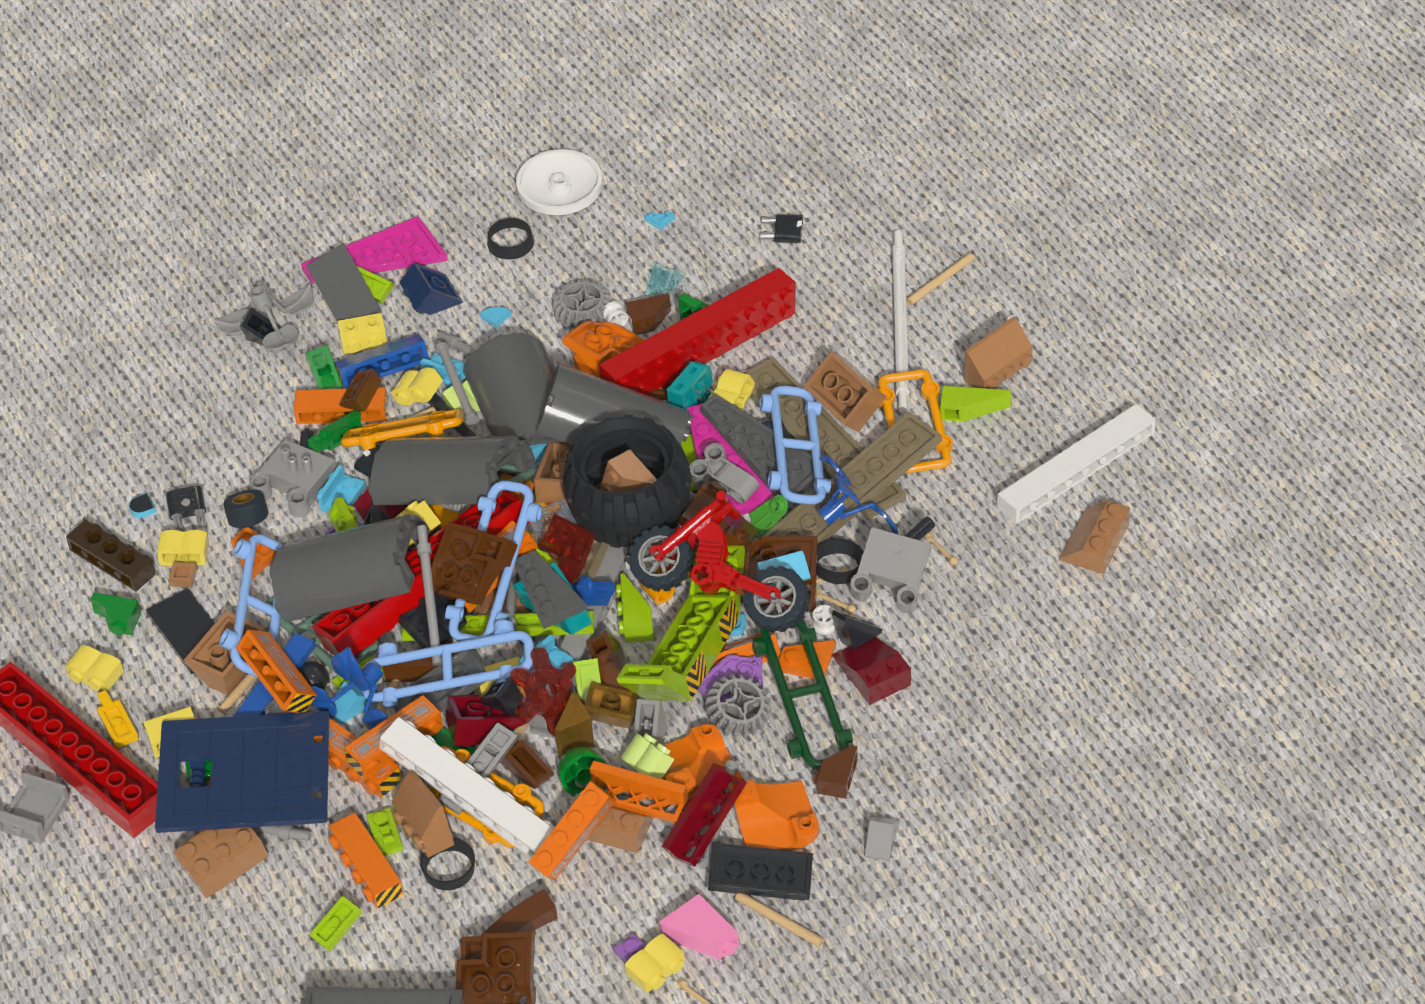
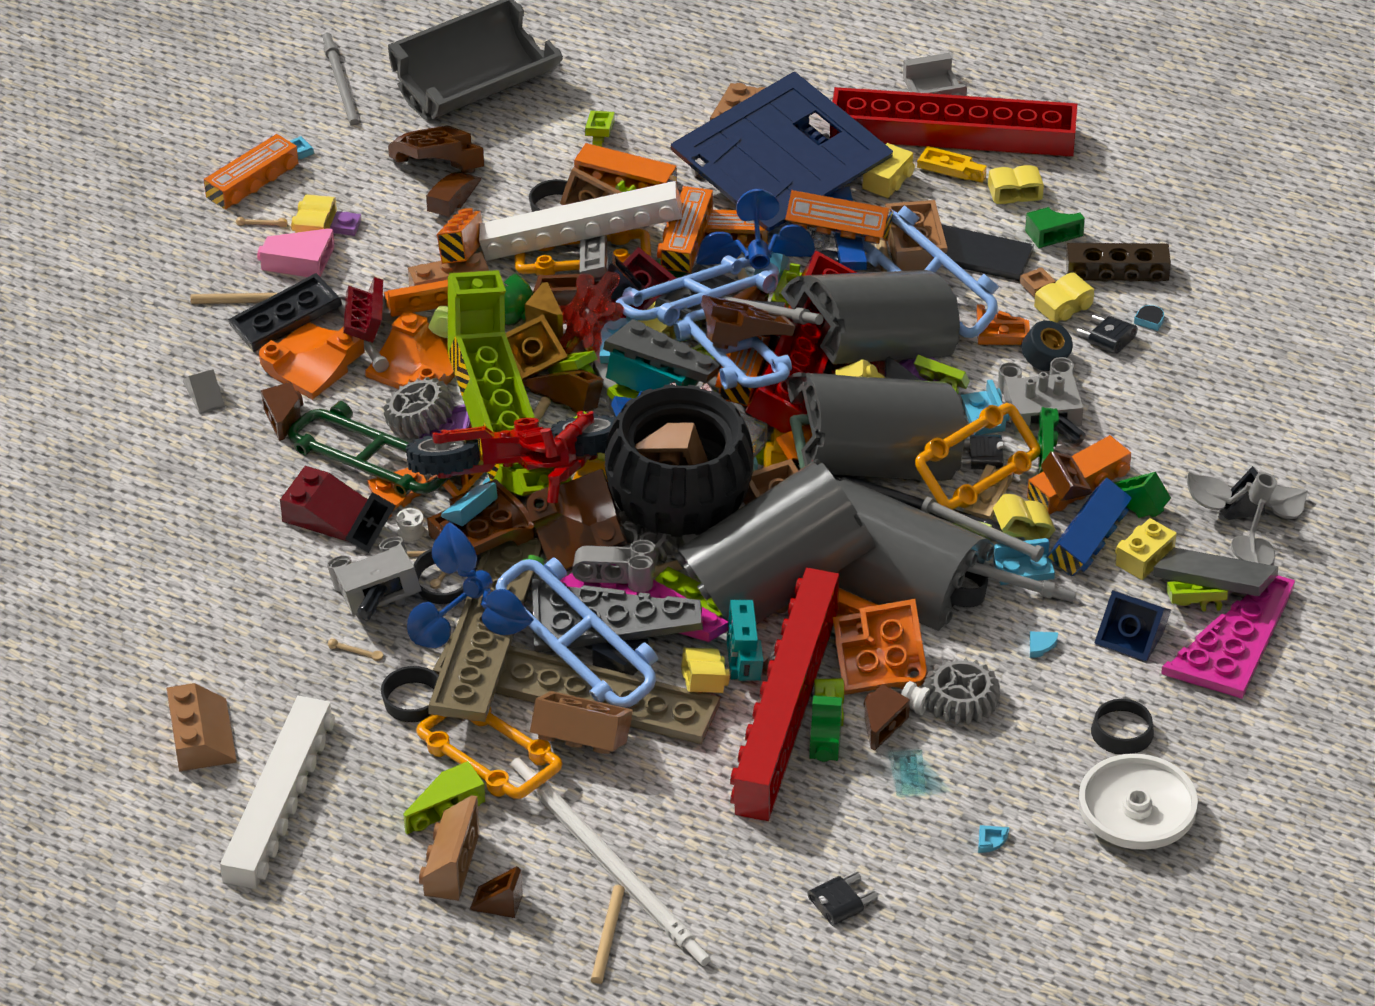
camera: 140 degrees right, 5 degrees down
(932, 470) = (403, 676): none -> black tyre
(985, 318) = (500, 895): none -> reddish brown slope

